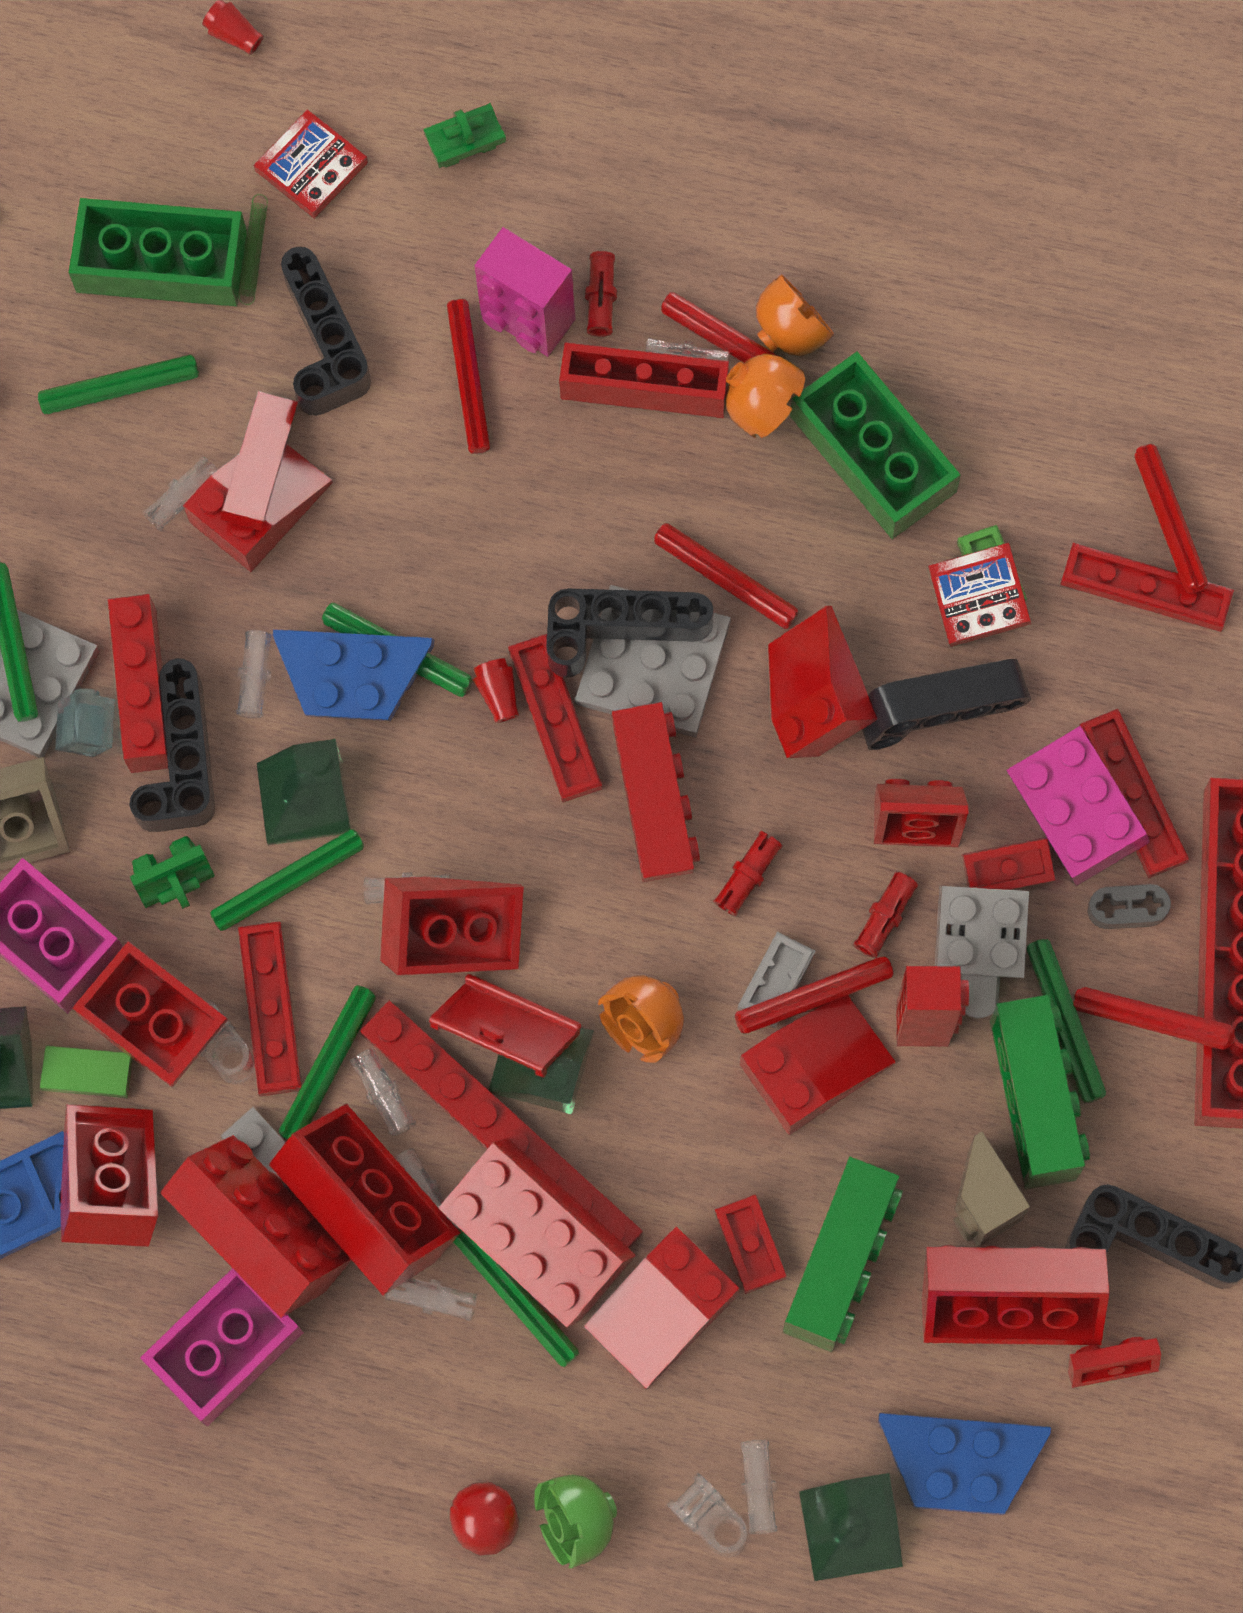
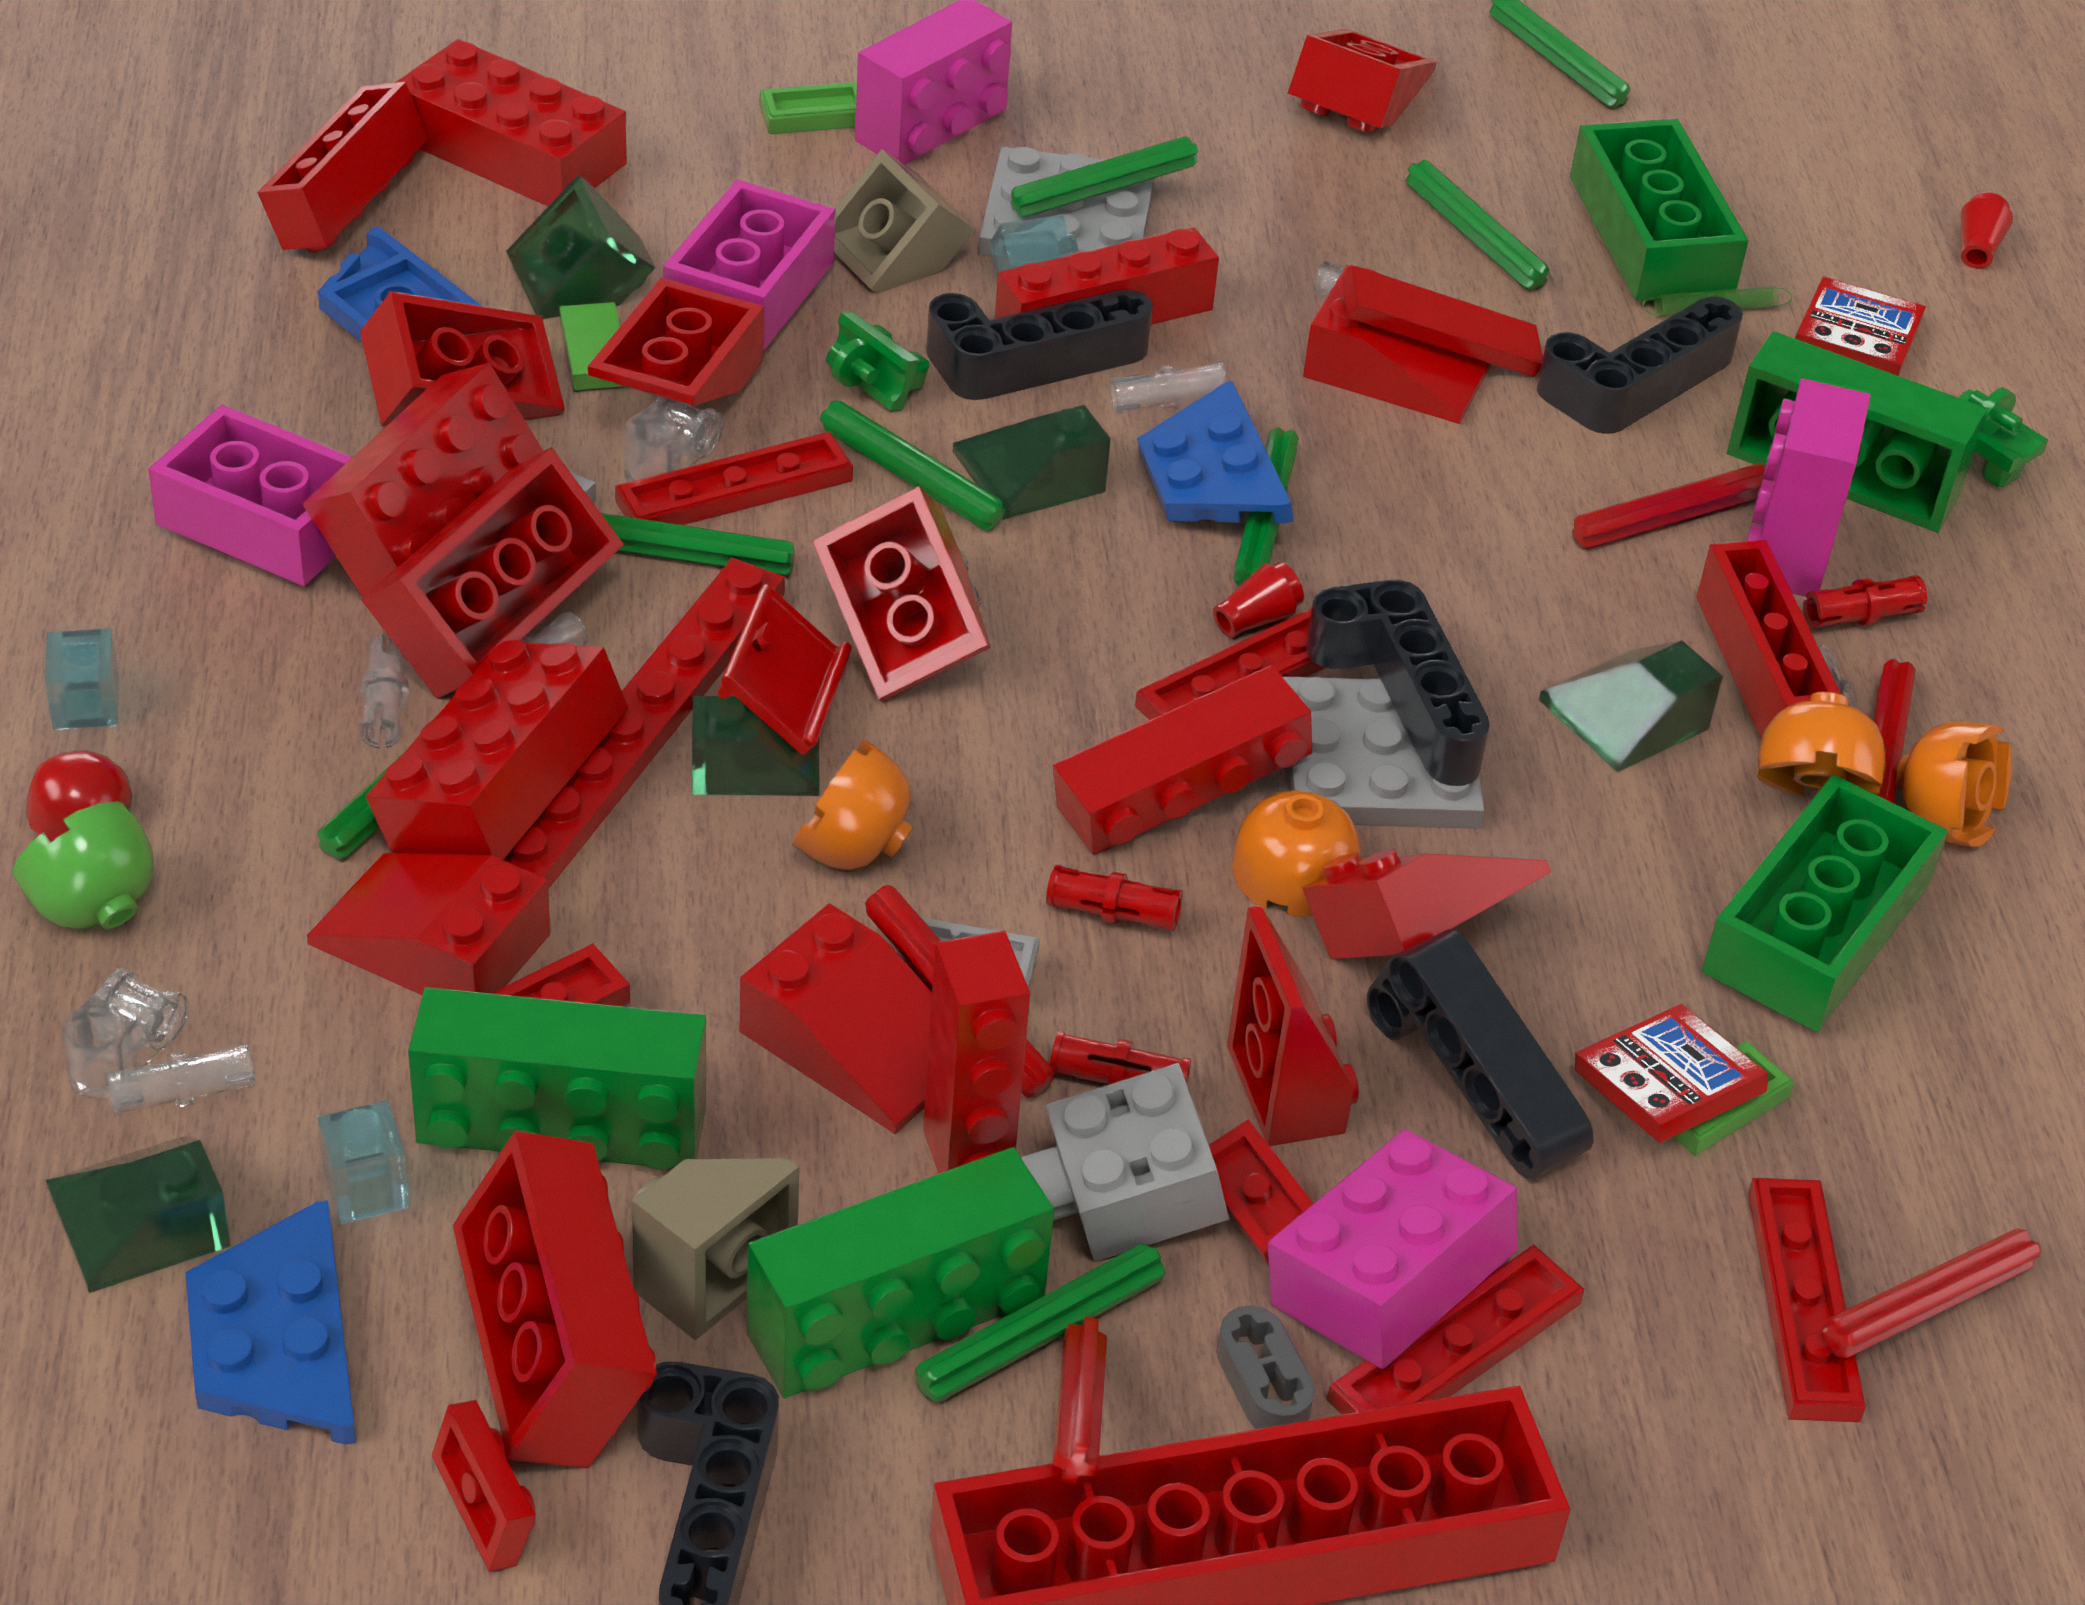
camera: 65 degrees right, 30 degrees down
(372, 1499) = (82, 679): none -> clear light blue brick
(383, 1092) = (656, 596): clear pin -> none
(453, 227) = (1912, 438): none -> green brick
(652, 483) = (1638, 702): none -> slope
(726, 575) = (1546, 789): red axle -> none
(738, 748) = (1287, 844): none -> orange cylinder
(862, 1385) = (364, 1162): none -> clear light blue brick

